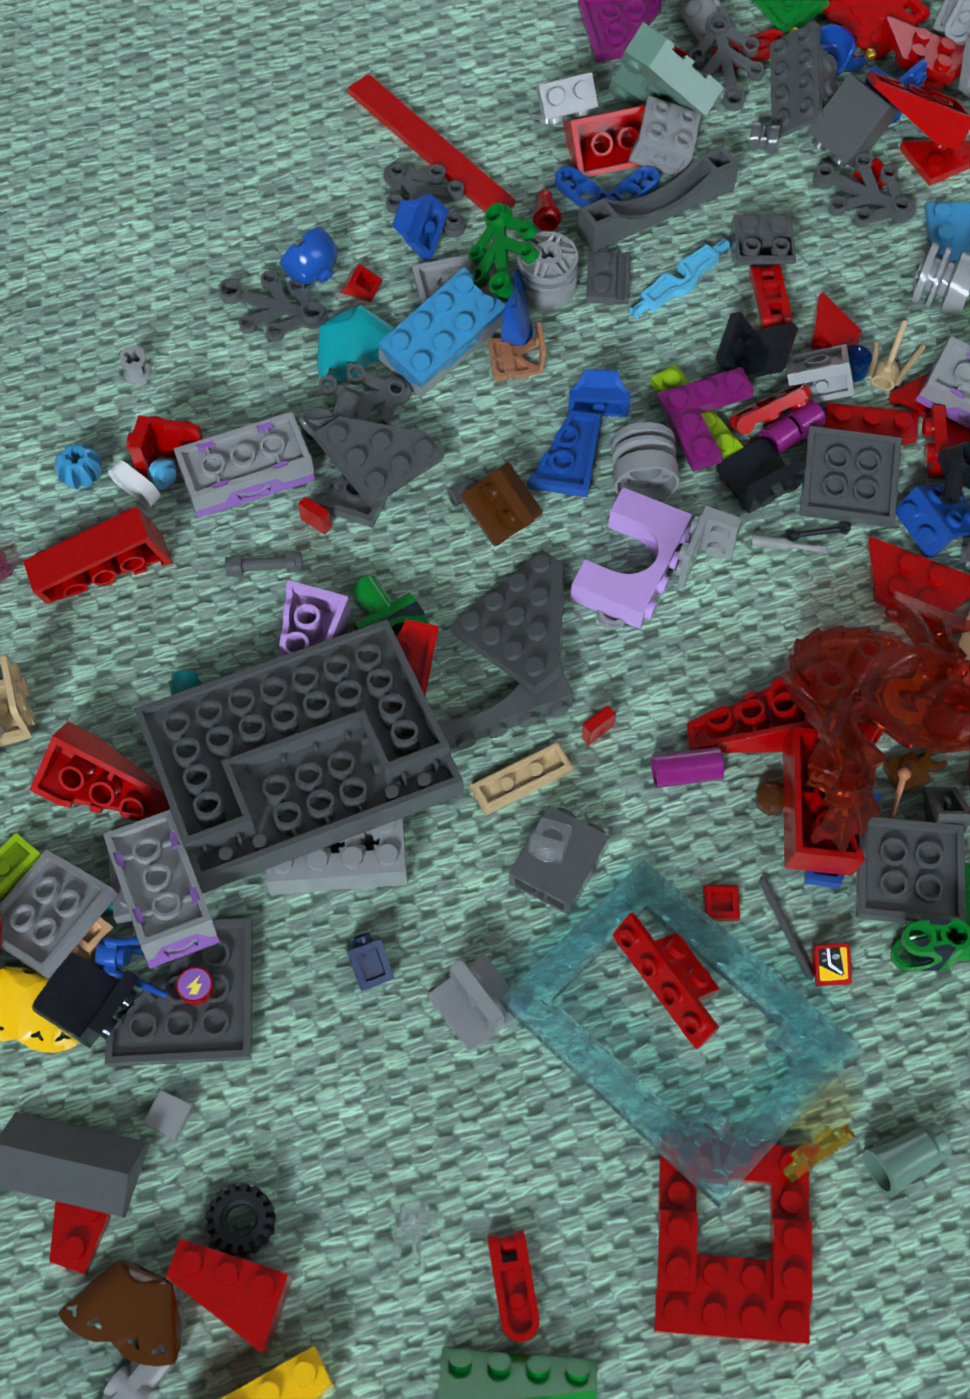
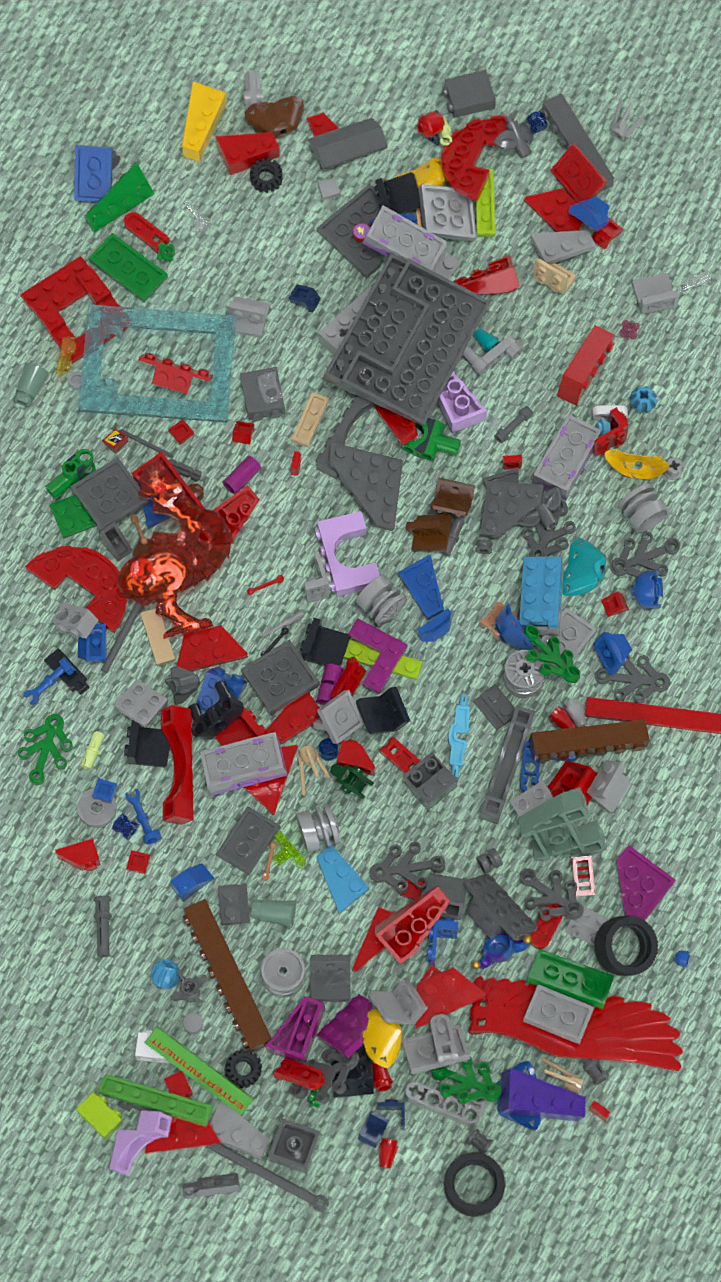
camera: 140 degrees right, 5 degrees up
(166, 659) = (508, 346): none -> light grey beam
(167, 392) = (617, 459): none -> yellow piece
(221, 336) = (643, 508): none -> light grey wheel
(440, 519) = (453, 497): none -> reddish brown bracket
(451, 446) = (483, 546): none -> dark grey bush
(512, 1215) = (170, 252): none -> green plate
(524, 204) = (576, 712): none -> light grey cone
(538, 163) = (589, 740): none -> reddish brown brick
(594, 1242) = (128, 267): none -> green plate
(630, 834) = (243, 432): none -> red slope
(746, 603) = (279, 579): none -> red hinge
(762, 842) = (186, 470): none -> dark grey axle
(822, 1112) = (74, 380): none -> light grey tile
(860, 302) = (350, 779): none -> dark green hinge

